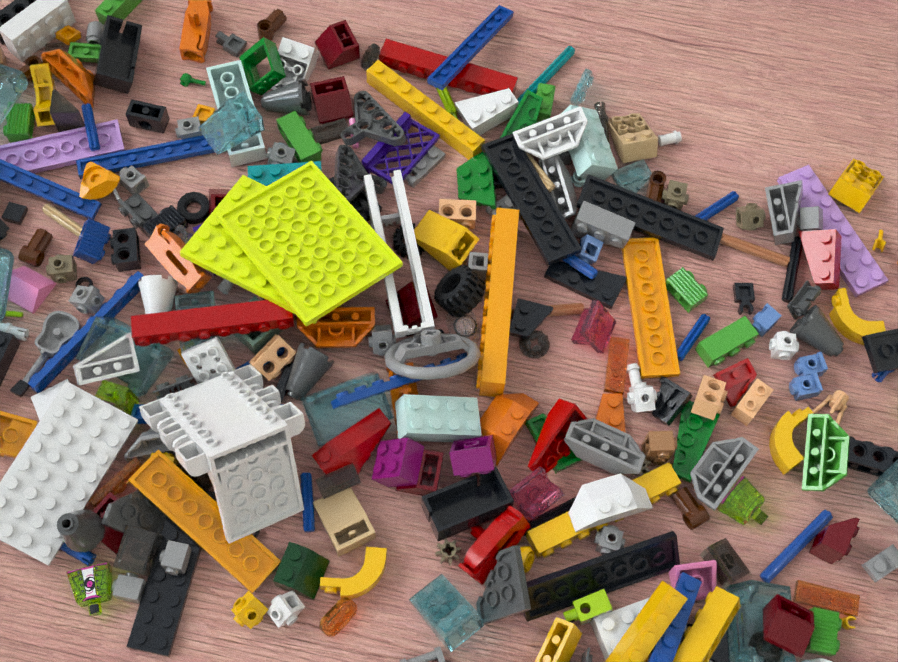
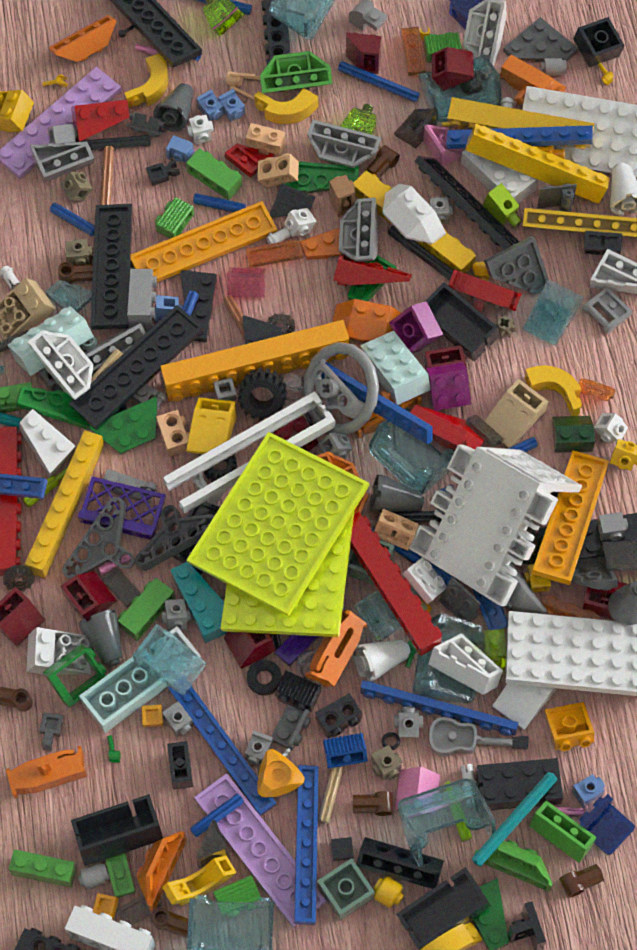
camera: 105 degrees left, 0 degrees up
(535, 494) = (429, 269): clear pink bracket -> none

